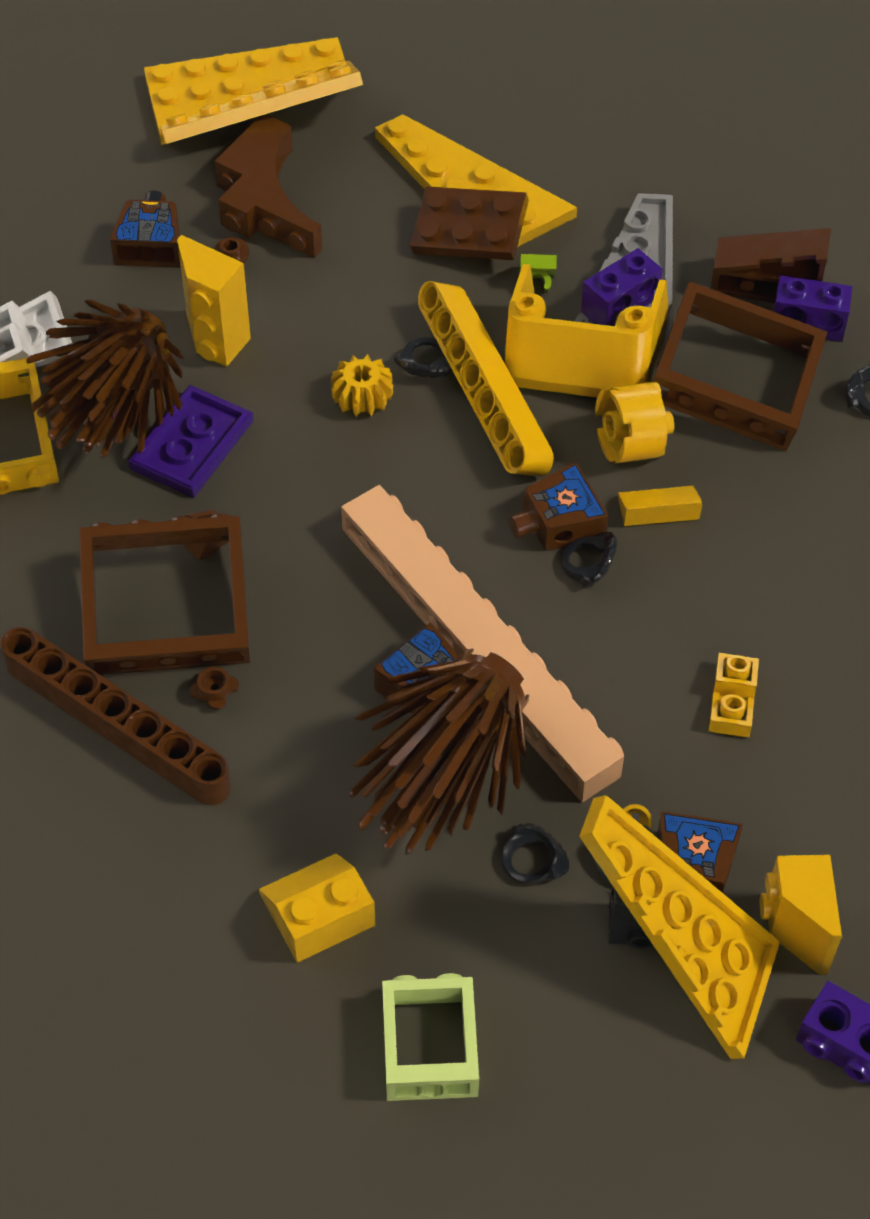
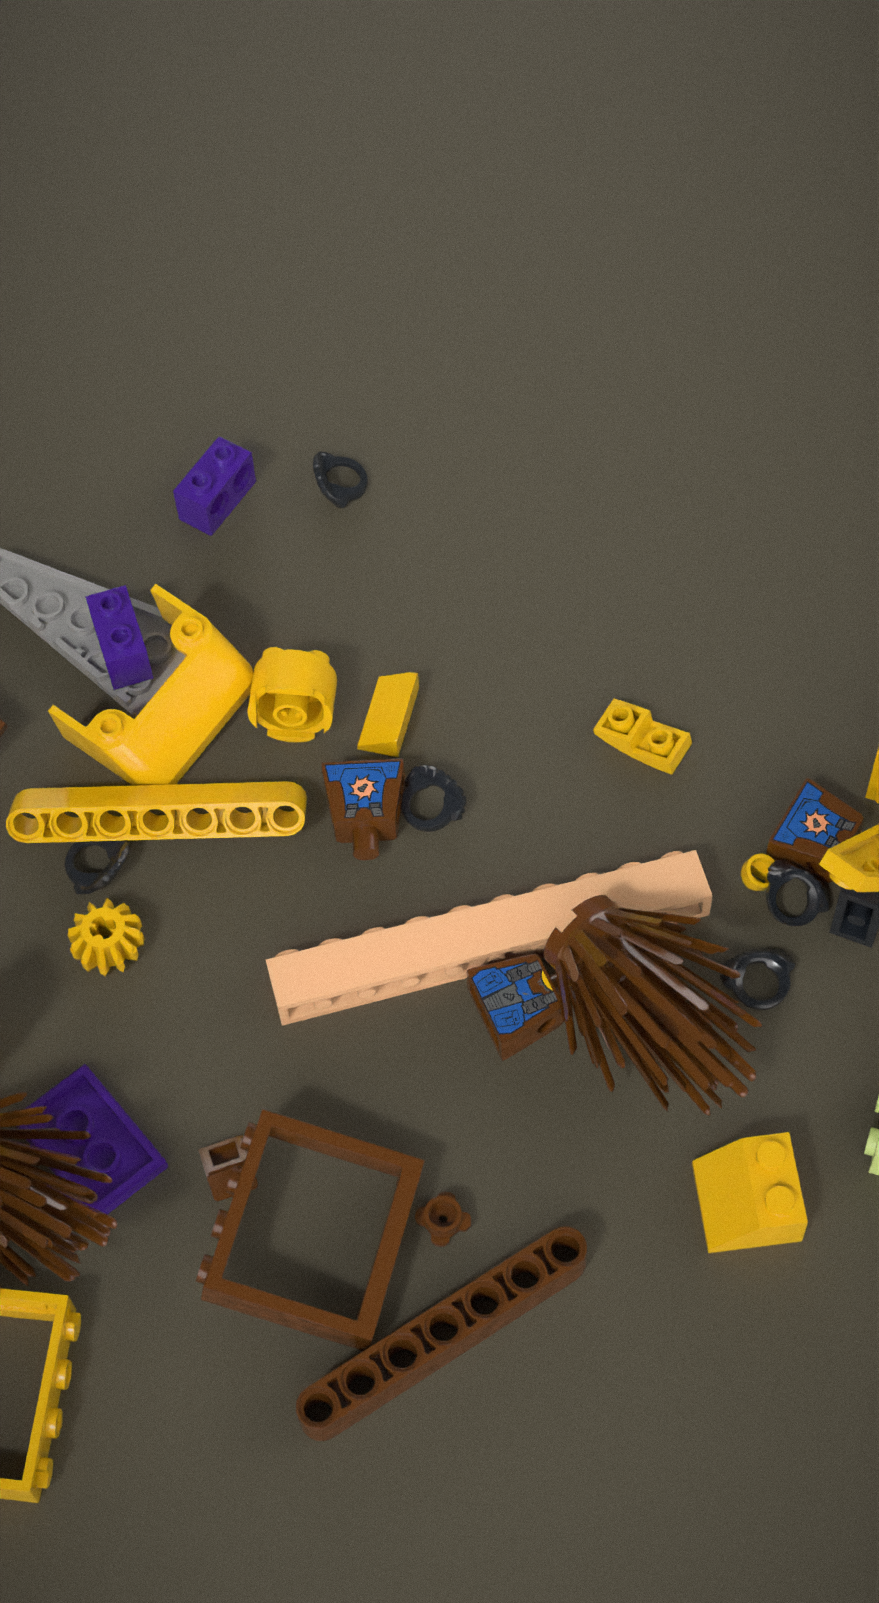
camera: 65 degrees left, 5 degrees up
(541, 267) = (27, 710): lime tile -> none
(725, 407) = (304, 613): reddish brown window -> none
(753, 263) = (142, 497): reddish brown wedge -> none

